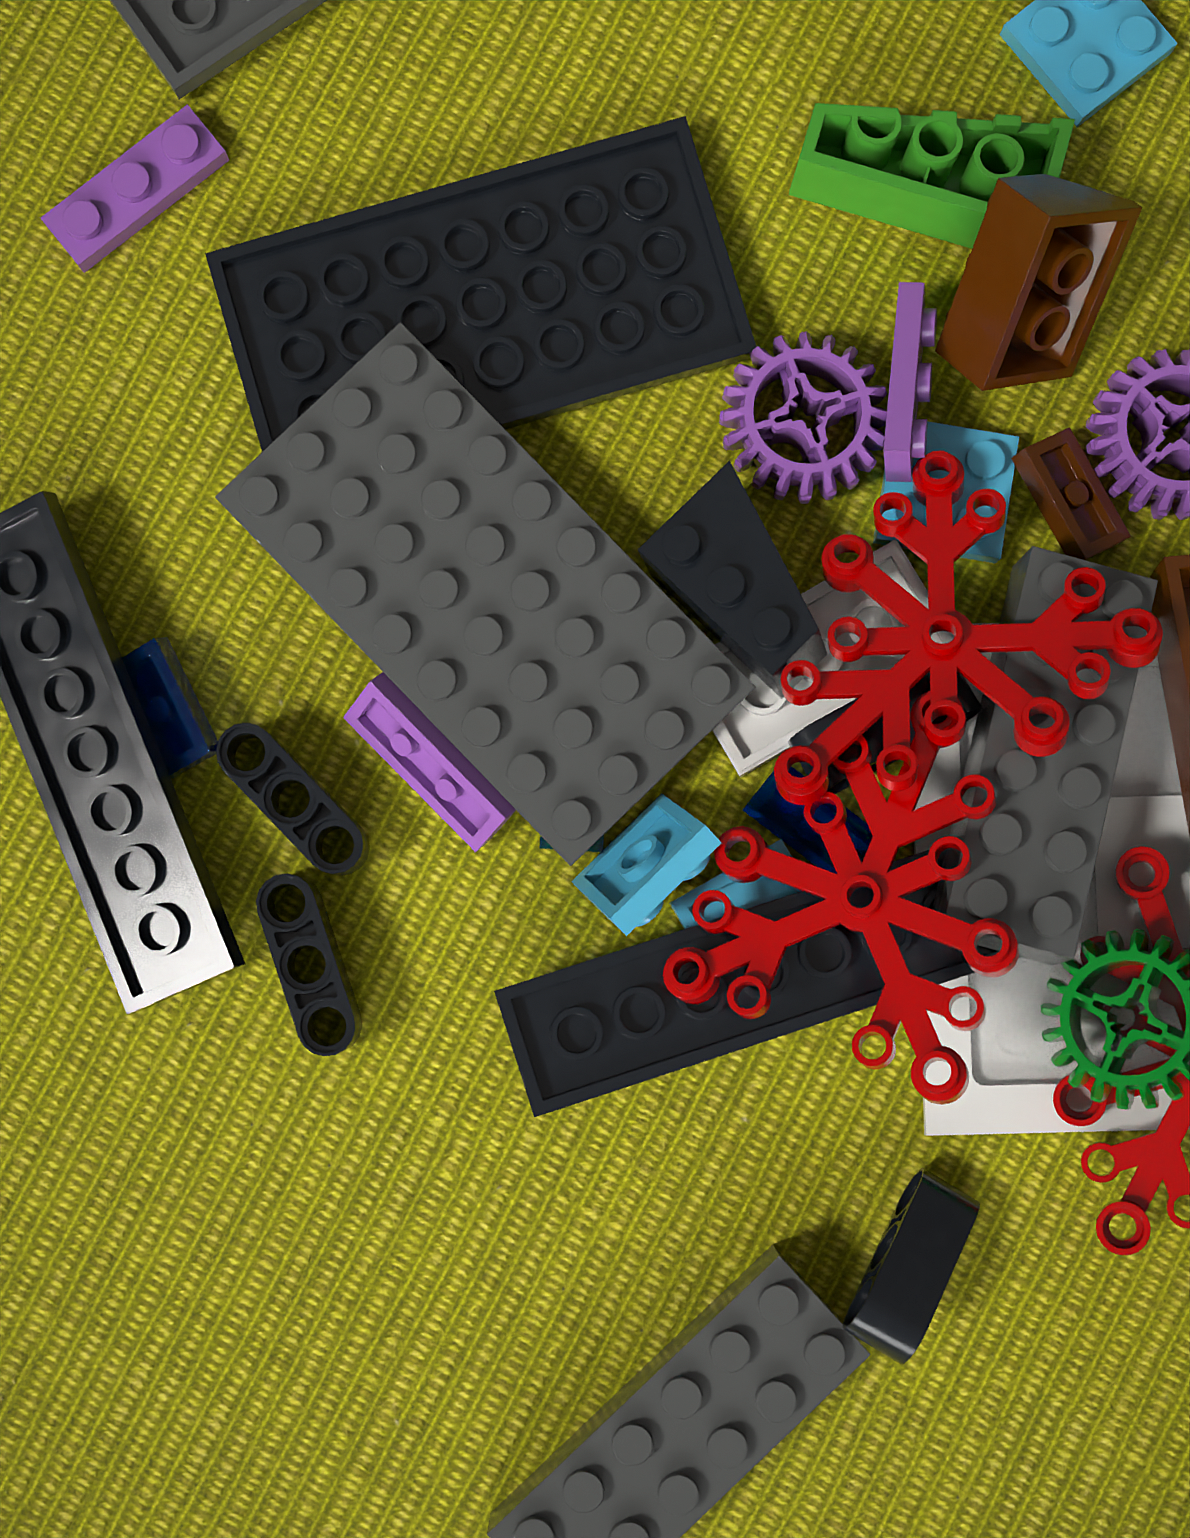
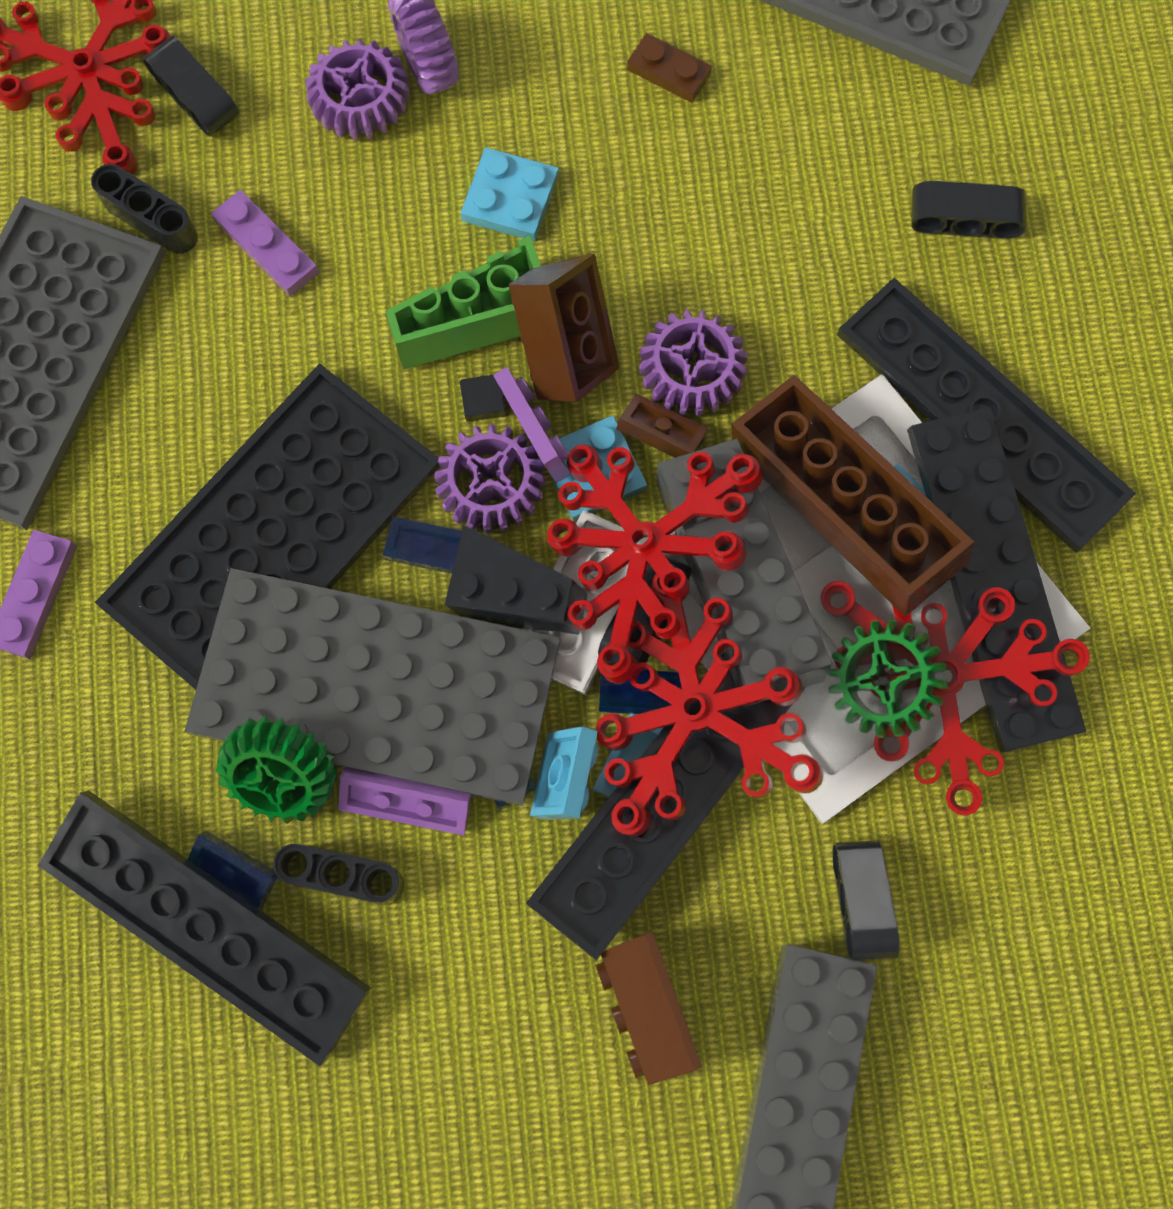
camera: 30 degrees left, 10 degrees down
(285, 942) = (388, 957): black beam -> none
(296, 621) = (276, 769): none -> green gear
(558, 1216) = (648, 1010): none -> reddish brown slope
(662, 448) = (422, 545): none -> clear blue plate
(865, 300) = (481, 398): none -> black tile

